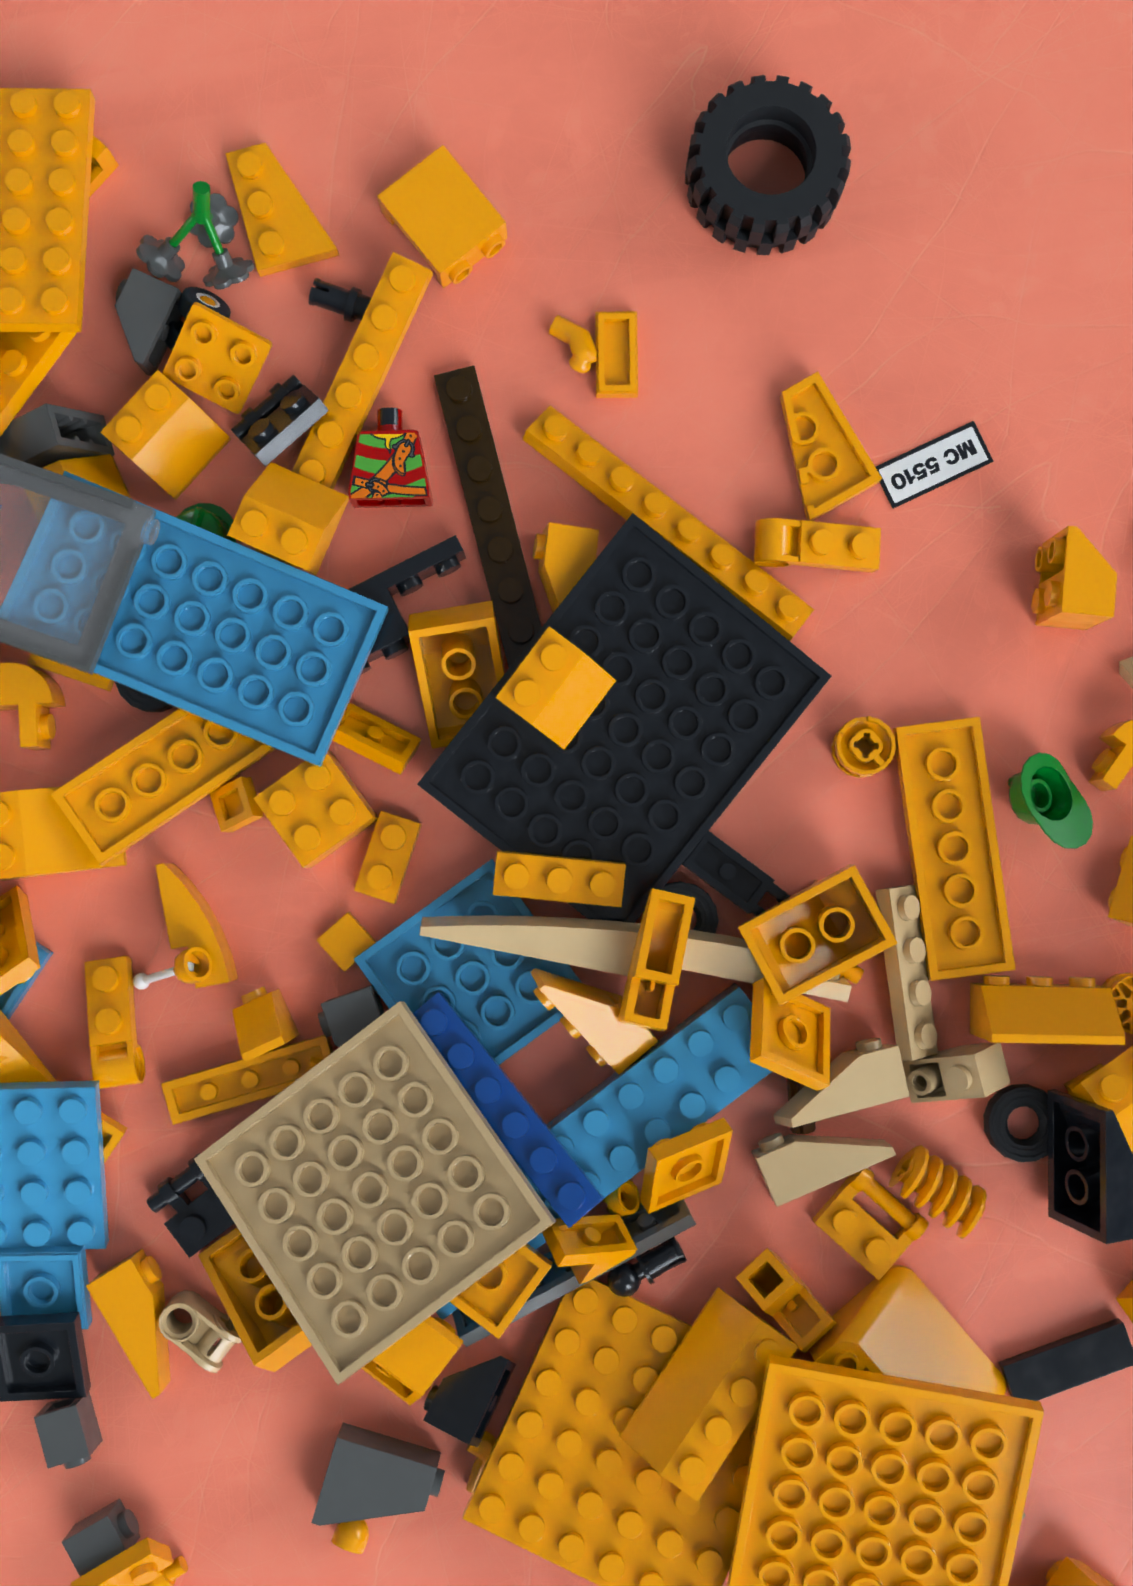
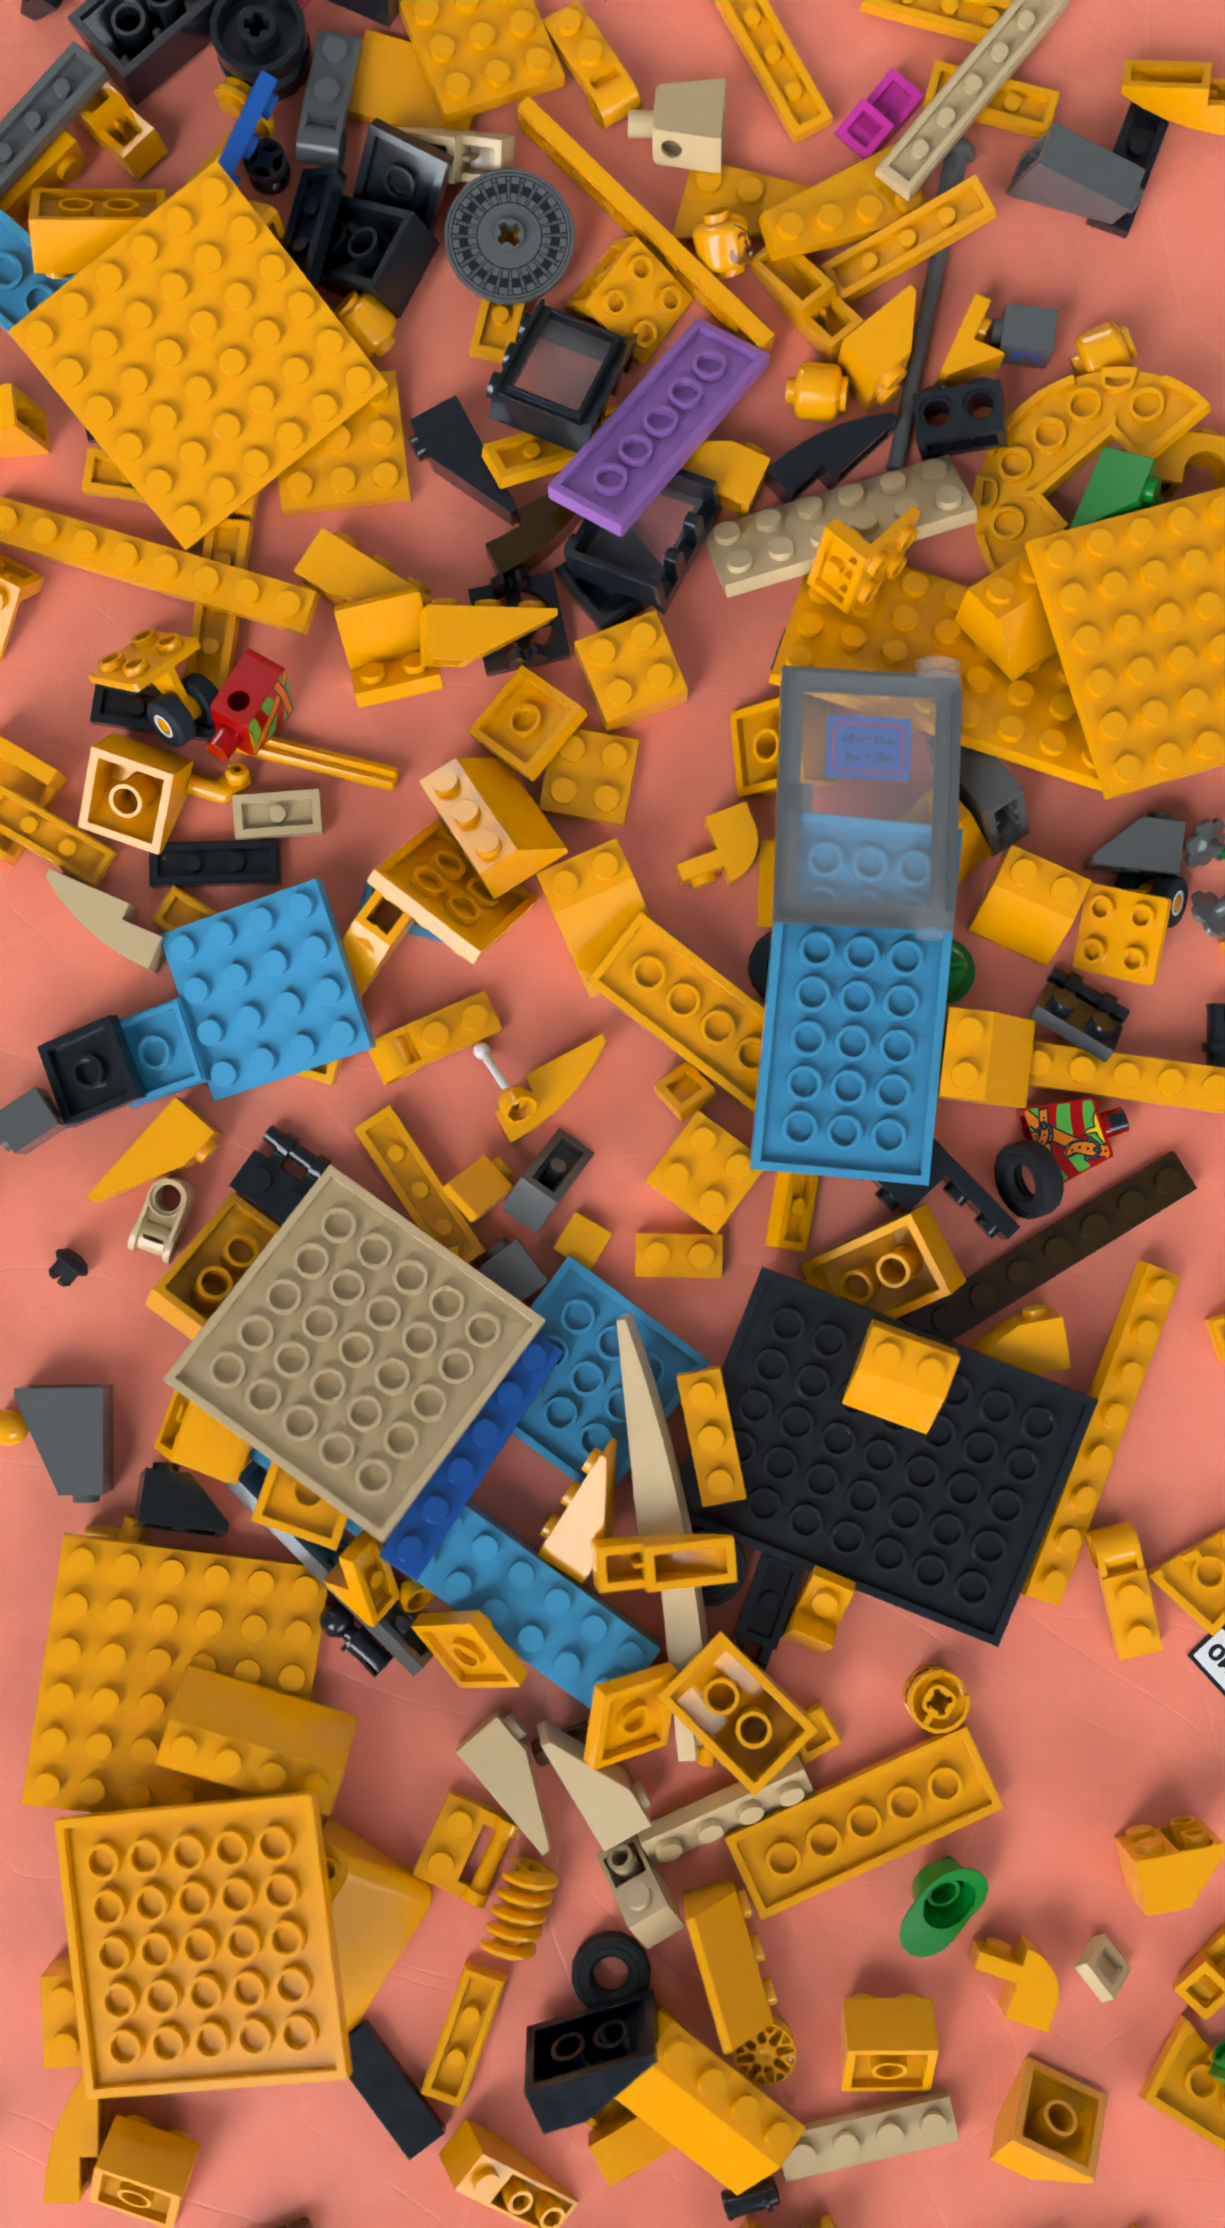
camera: 70 degrees right, 0 degrees up
(218, 1434) = (68, 1267): none -> black piece
(278, 958) = (547, 1180): none -> dark grey slope
(411, 496) = (1045, 1173): none -> black tyre
(750, 829) = (819, 1611): none -> light orange slope
(786, 1299) = (367, 1788): light orange brick -> none
(866, 861) = (825, 1738): none -> light orange tile
(1038, 1276) = (463, 2034): none -> light orange tile

